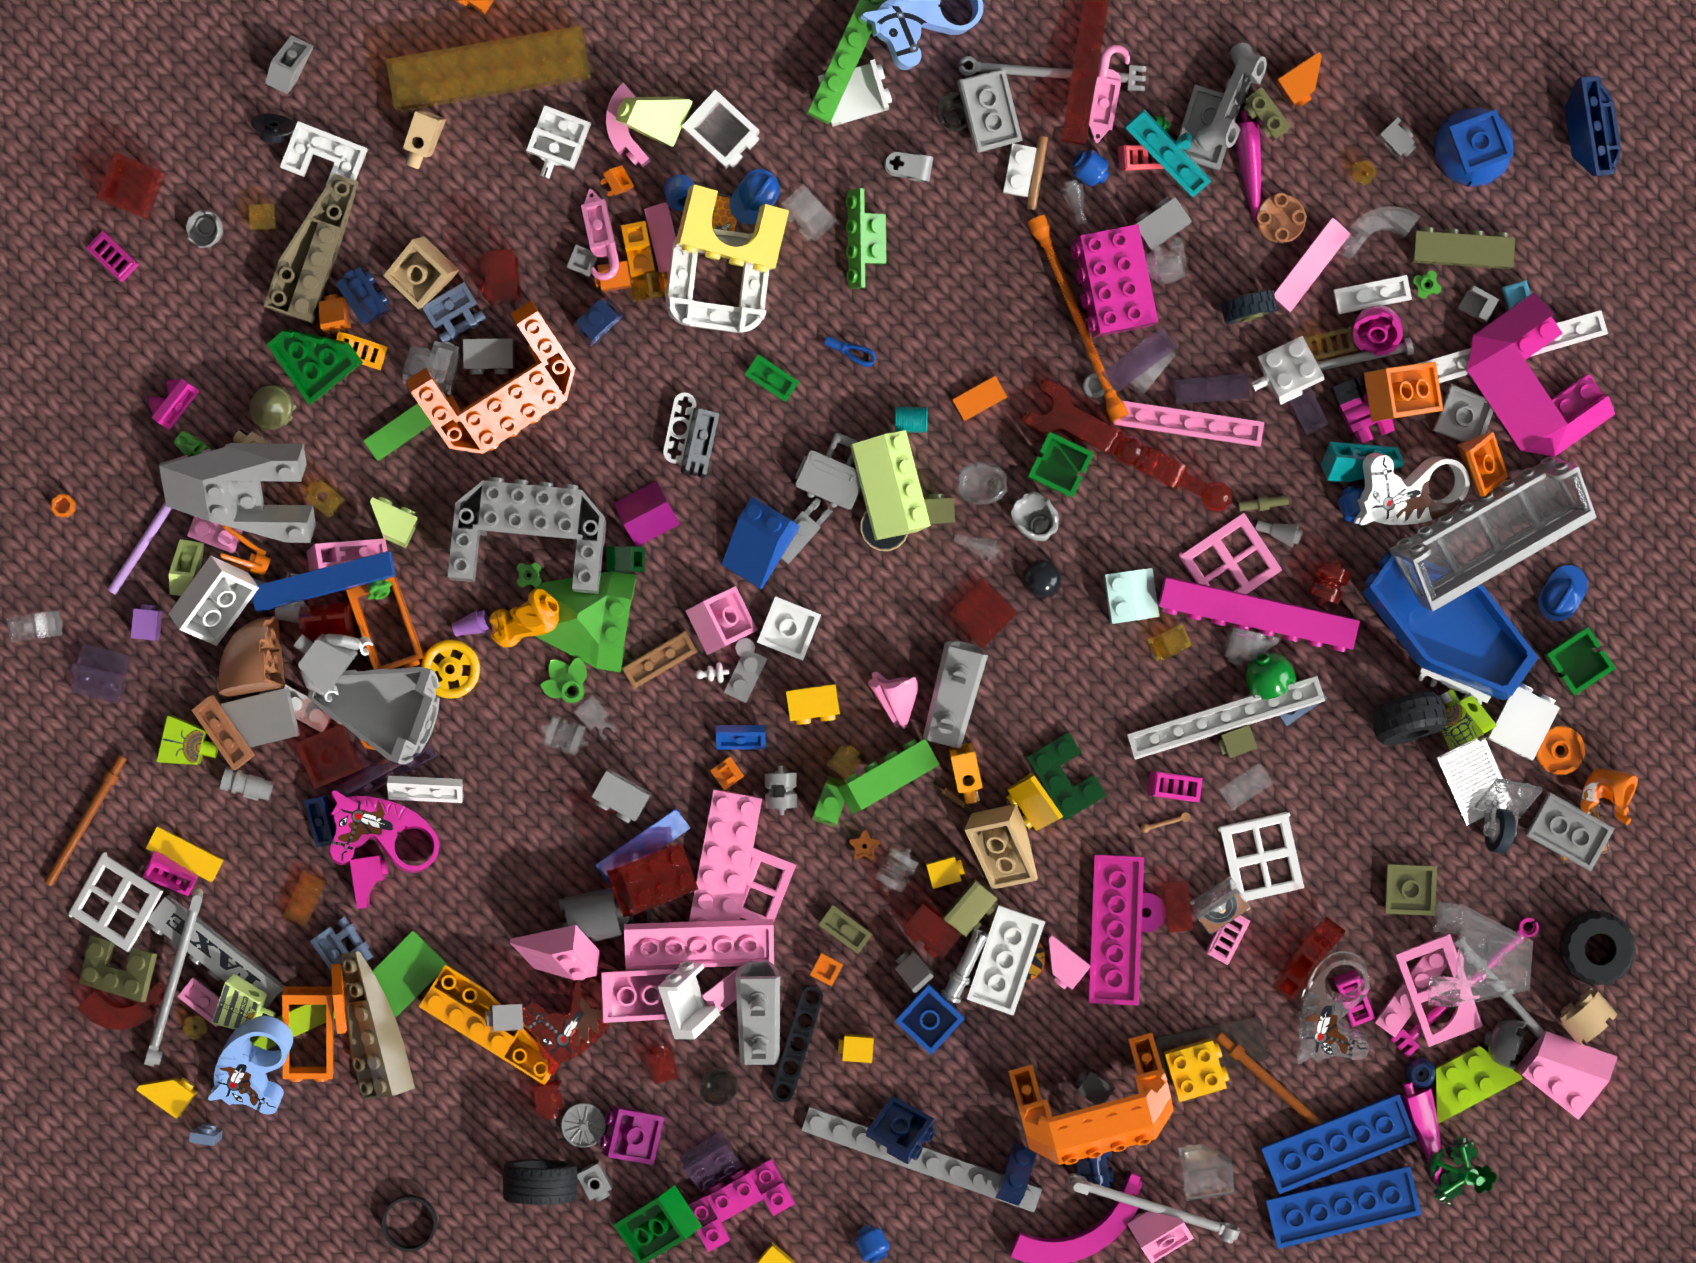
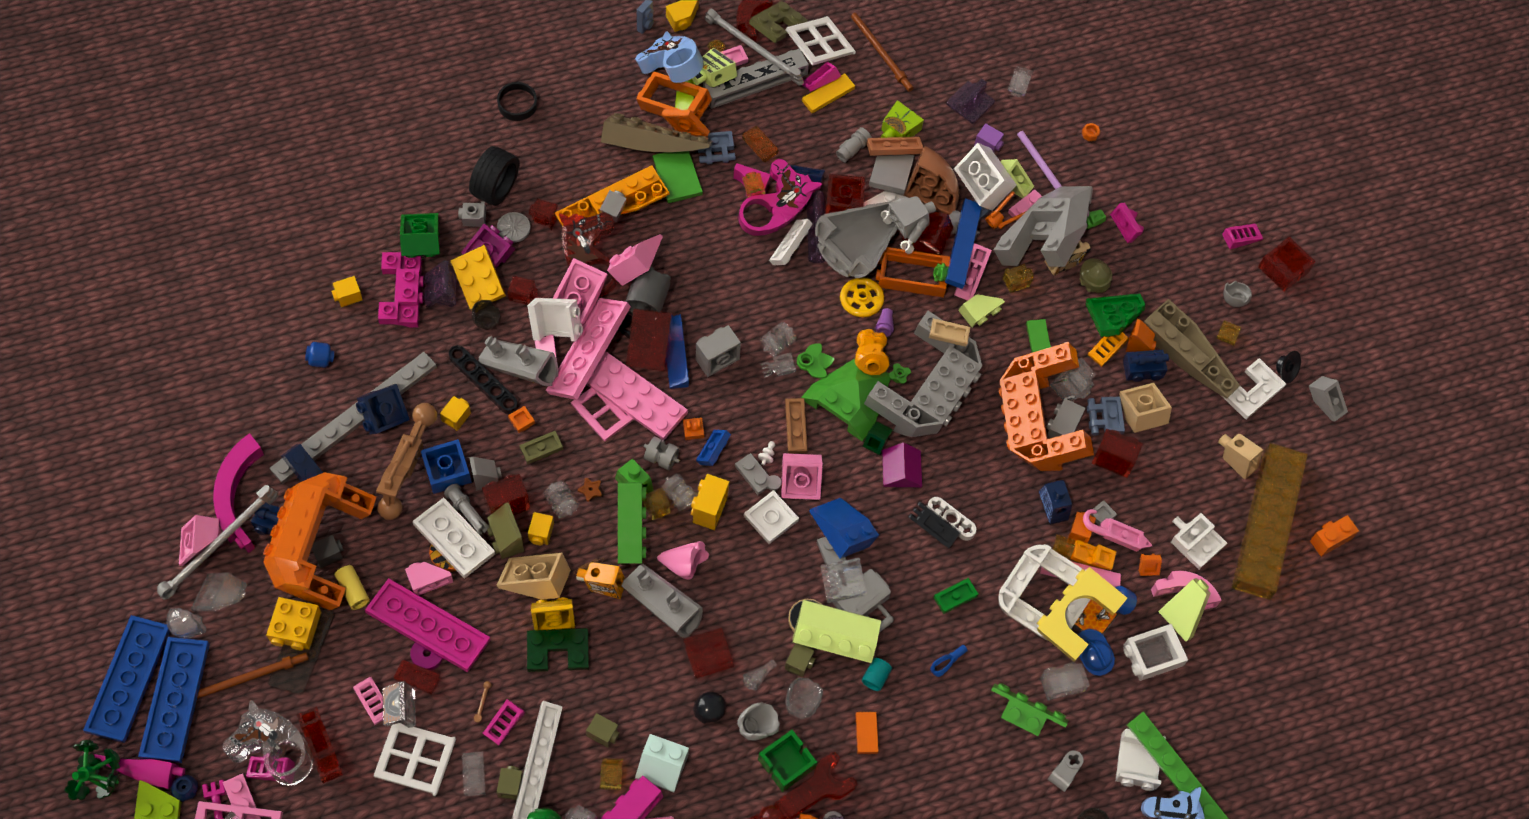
camera: 110 degrees right, 25 degrees down
(383, 868) = (753, 184): none -> brick
(467, 536) = (949, 332): none -> tan plate
(676, 1124) = (478, 276): none -> yellow plate
(816, 747) = (678, 491): none -> clear wheel
(828, 507) = (843, 580): none -> clear plate
(951, 1064) = (404, 462): none -> medium nougat piece
(1117, 1036) = (354, 589): none -> light yellow pin
(1132, 675) = (603, 731): none -> olive brick
(1255, 1184) = (184, 623): none -> clear hair

